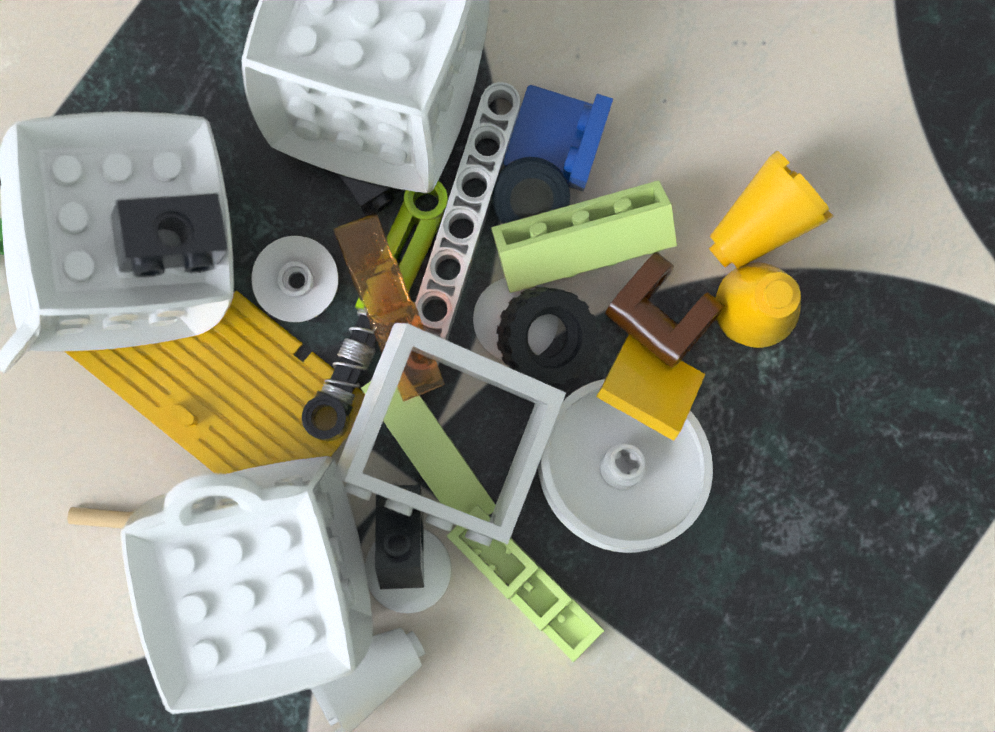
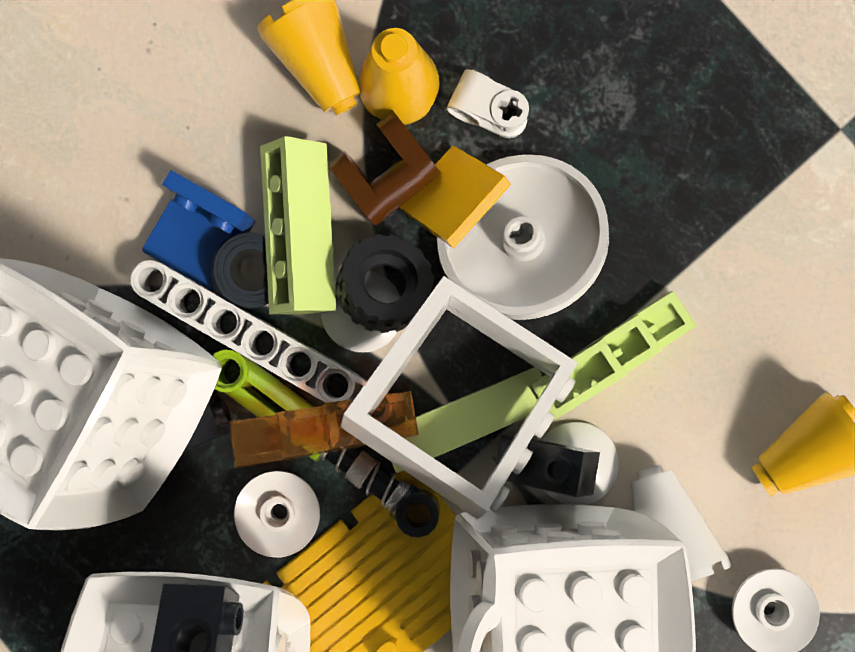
camera: 75 degrees left, 0 degrees up
(756, 394) = (484, 101): none -> white piece

